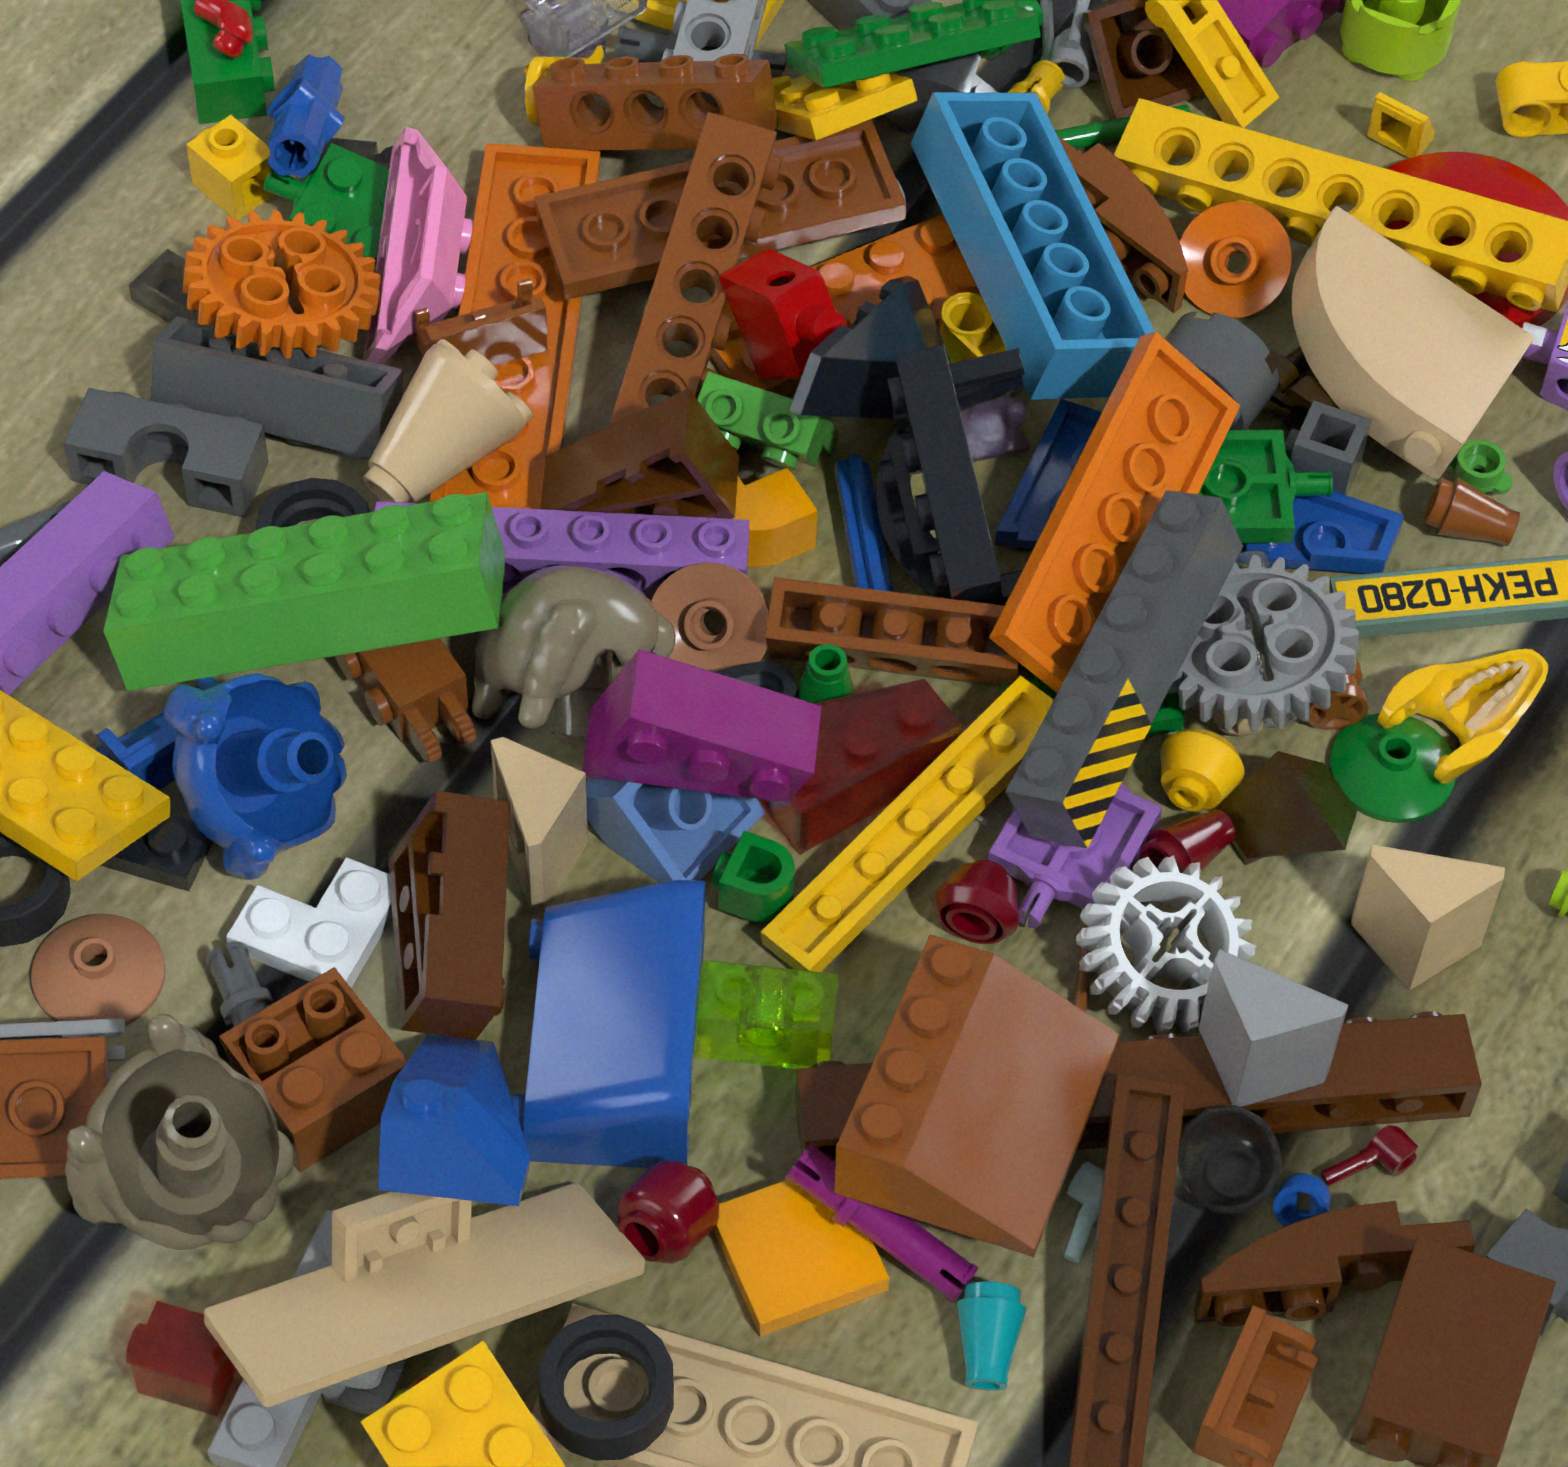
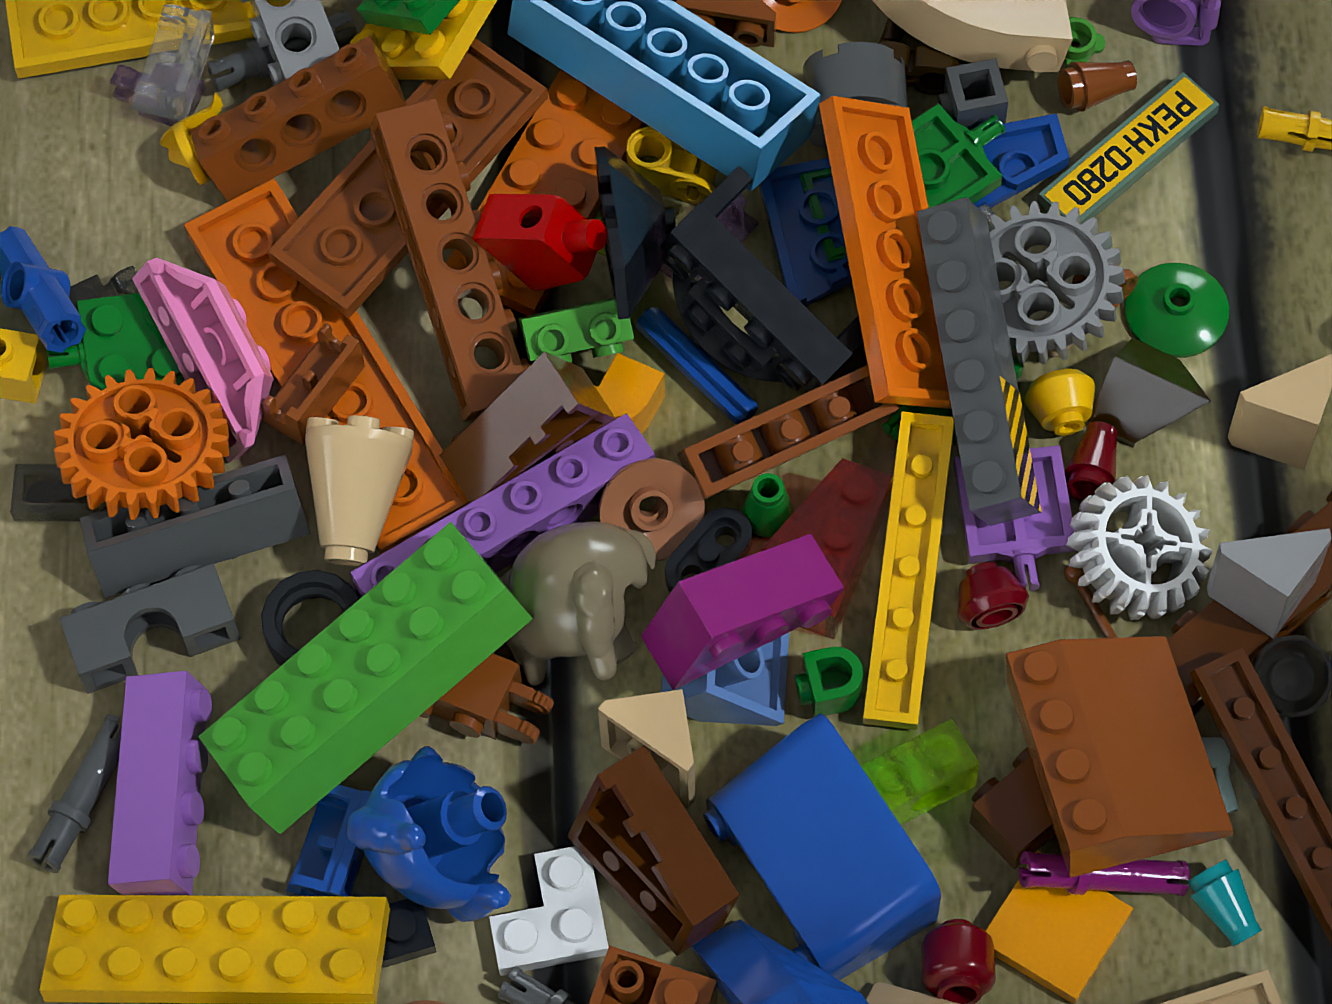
camera: 30 degrees left, 10 degrees up
(1472, 699) = (1203, 226): yellow animal -> none

